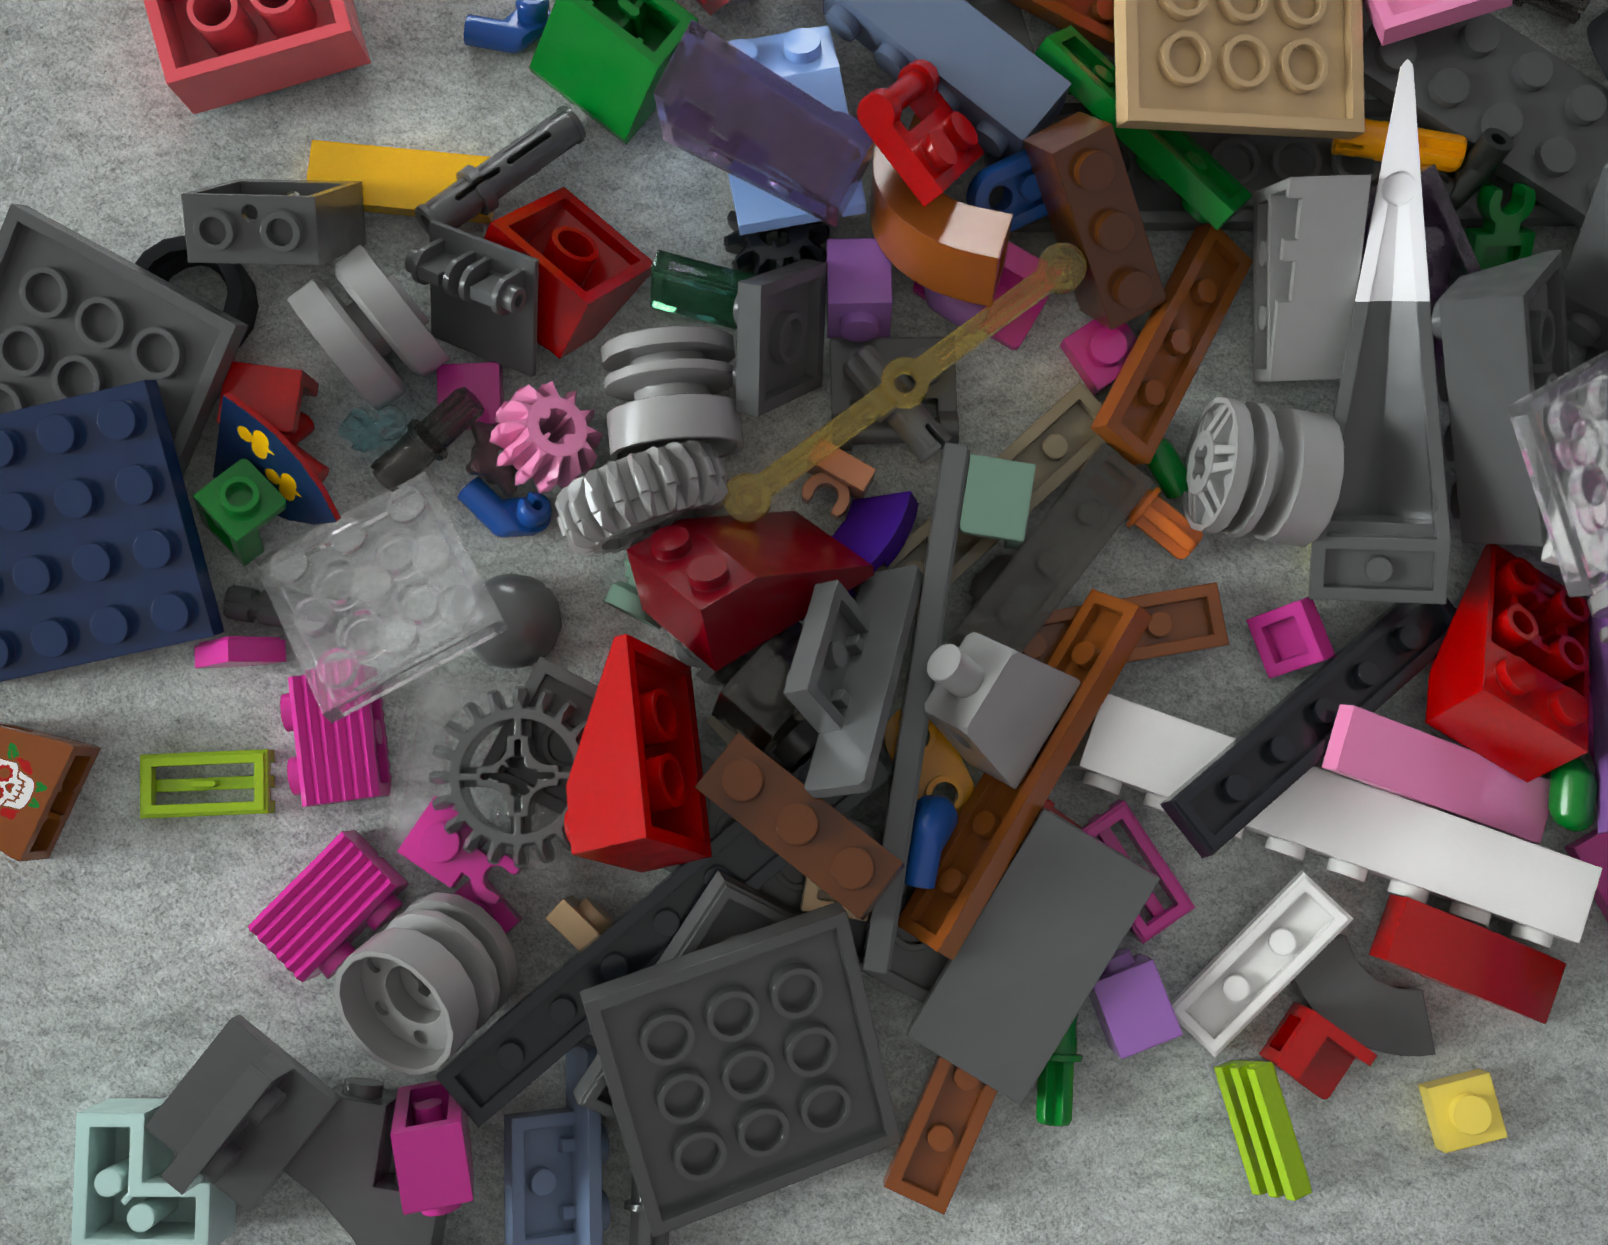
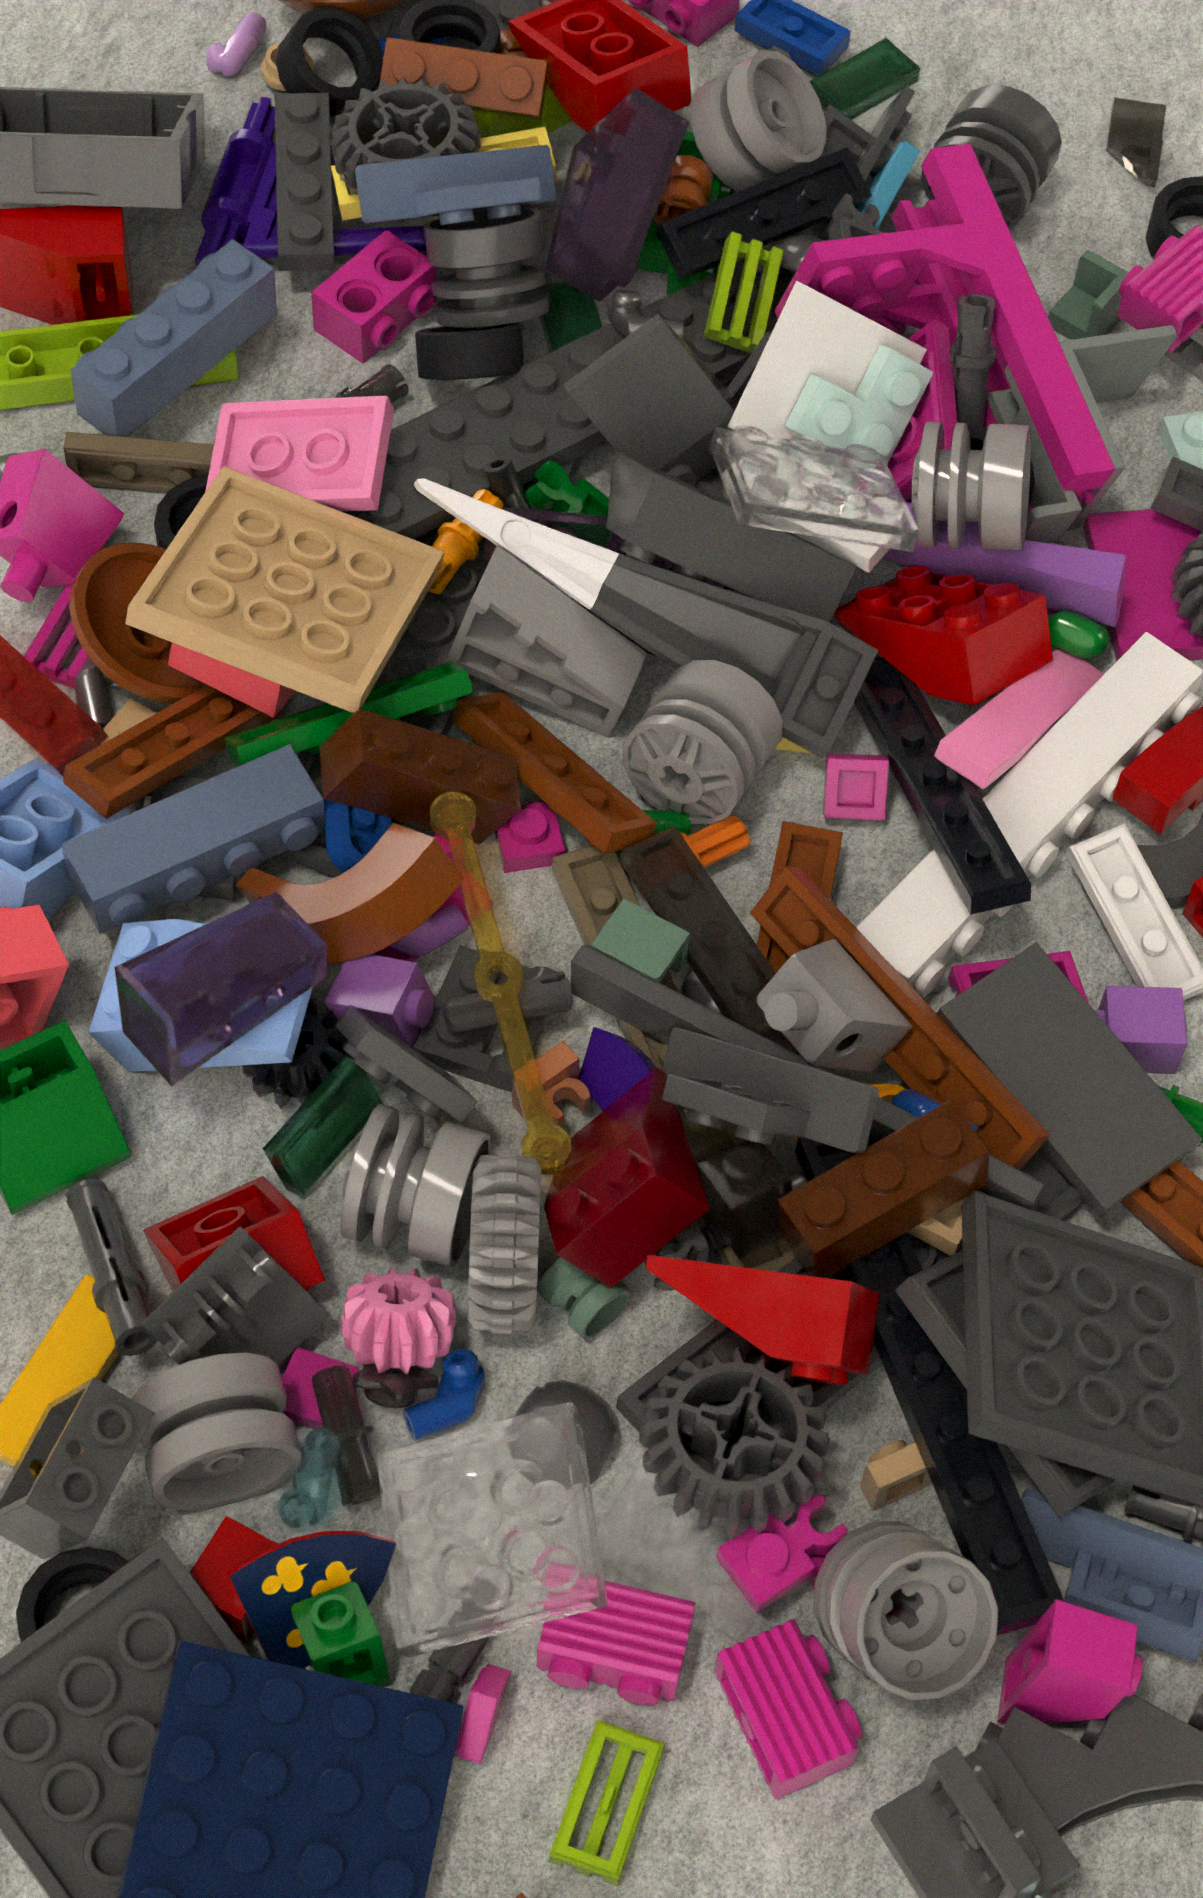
camera: 70 degrees left, 25 degrees down
(936, 148) = (286, 866): red plate -> none

